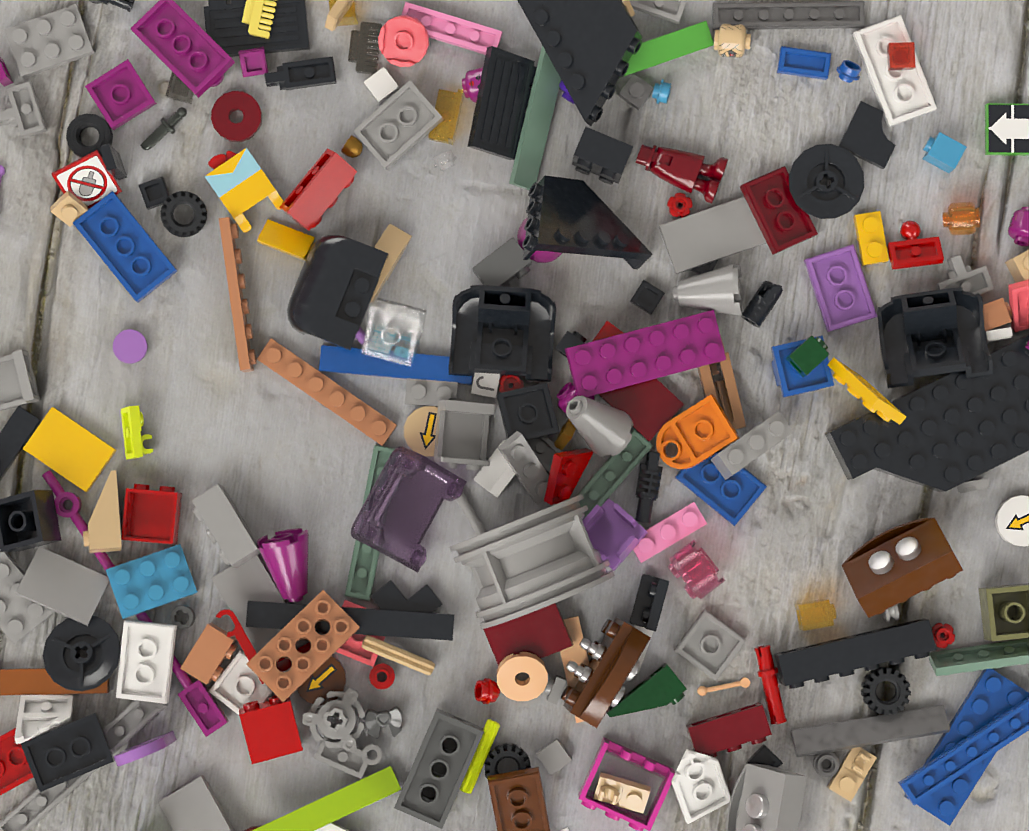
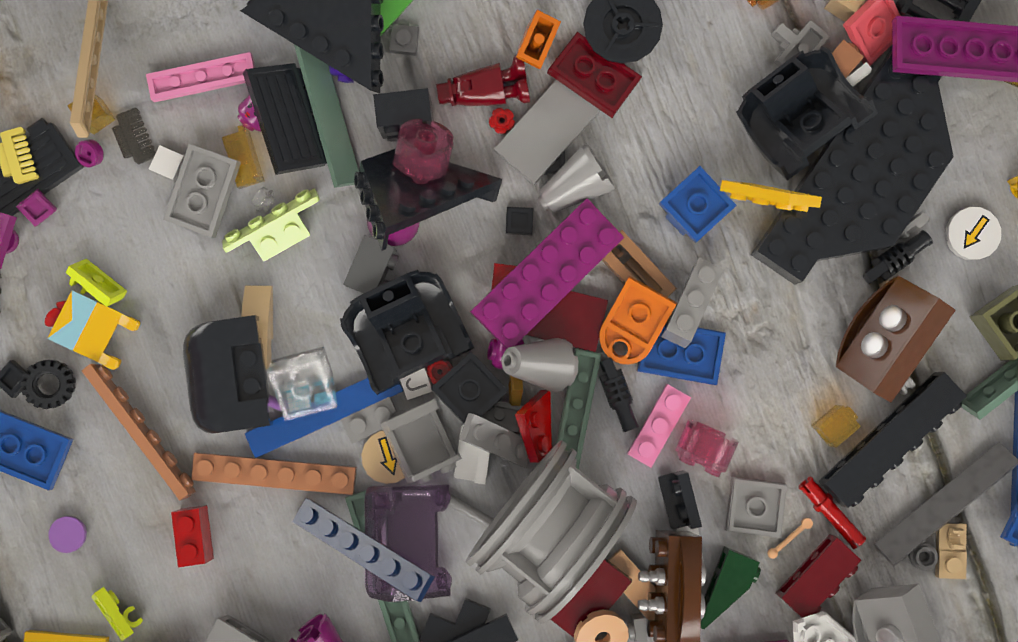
camera: 25 degrees left, 0 degrees up
(229, 103) = (33, 266): dark red tile -> none
(233, 405) = (192, 536): none -> red brick
(268, 152) = (95, 282): none -> neon yellow plate
(286, 239) = (156, 354): yellow slope -> none
(303, 74) = (88, 193): black hinge -> none
(318, 189) = (161, 291): brick -> none
(321, 41) = (89, 153): none -> magenta tile
(352, 147) = (171, 235): pearl gold hinge -> none
(369, 493) = (364, 550): none -> plate
(403, 41) = (164, 111): coral tile -> none
(441, 191) = (275, 230): none -> yellowish green bracket
(569, 340) = (470, 300): black plate -> none
(601, 196) = (423, 150): none -> clear pink brick
(613, 532) = (608, 456): medium lavender panel -> none
(661, 92) = (427, 26): dark azure plate -> none
(747, 155) = (537, 39): none -> orange slope
(762, 303) = (627, 168): black hinge -> none
(765, 757) = (863, 582): black tile -> none
(808, 355) = (698, 191): dark green brick -> none
(840, 288) = (690, 114): medium lavender tile -> none
(871, 238) = (692, 53): yellow plate -> none
(899, 698) = (955, 464): black tyre -> none
(914, 251) = (737, 43): red plate -> none
(945, 505) = (897, 257): none -> black hinge
(949, 637) = (969, 377): red plate -> none

